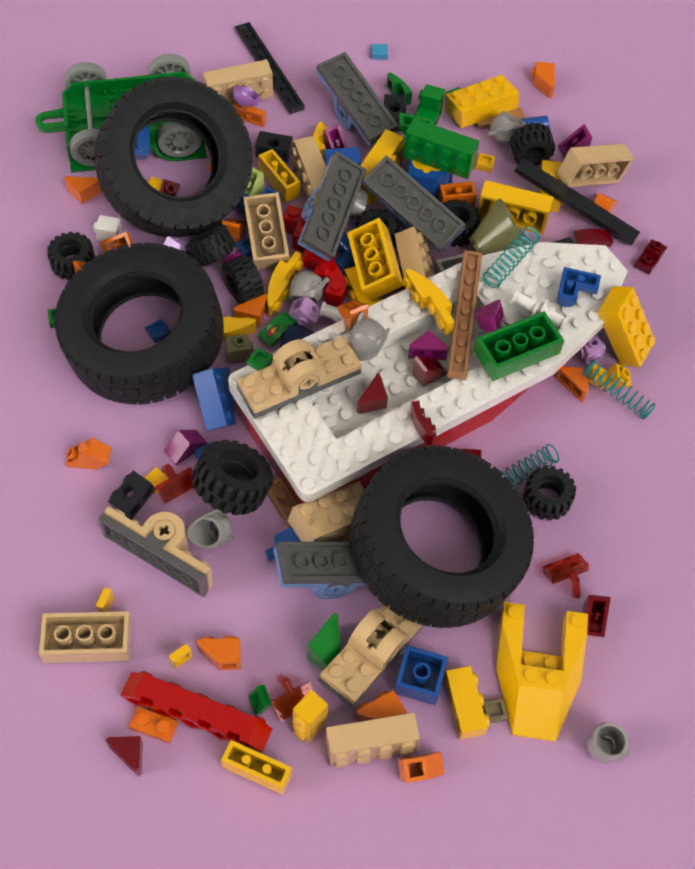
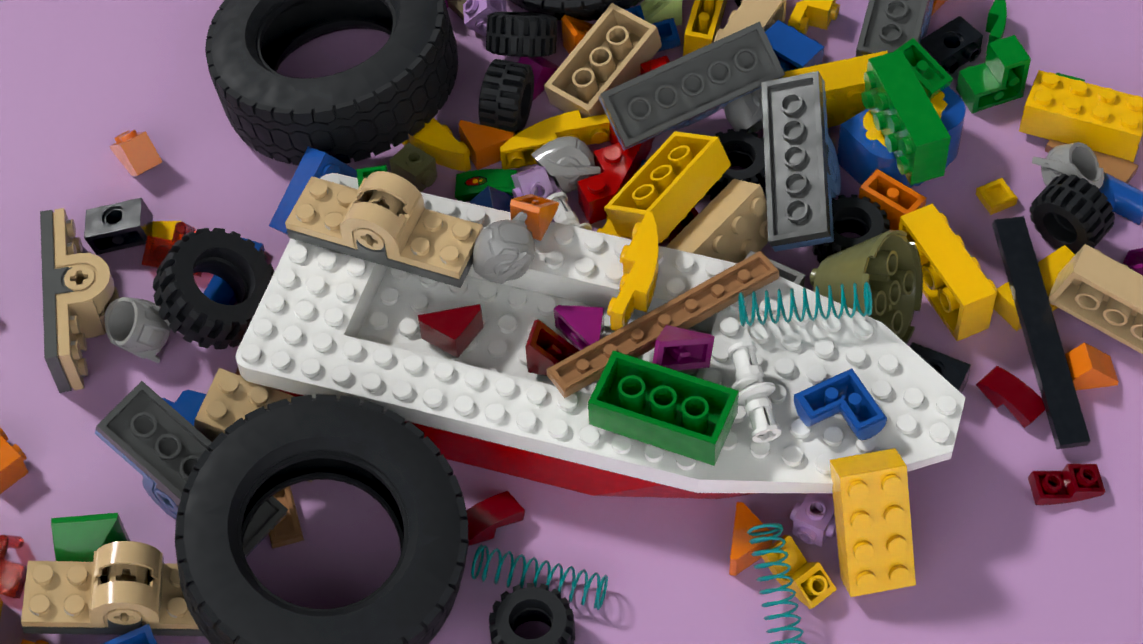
camera: 55 degrees right, 5 degrees down
(183, 445) = (241, 219): magenta slope -> none
(334, 138) = (828, 28): magenta slope -> none
(422, 425) = (437, 402): dark red slope -> none

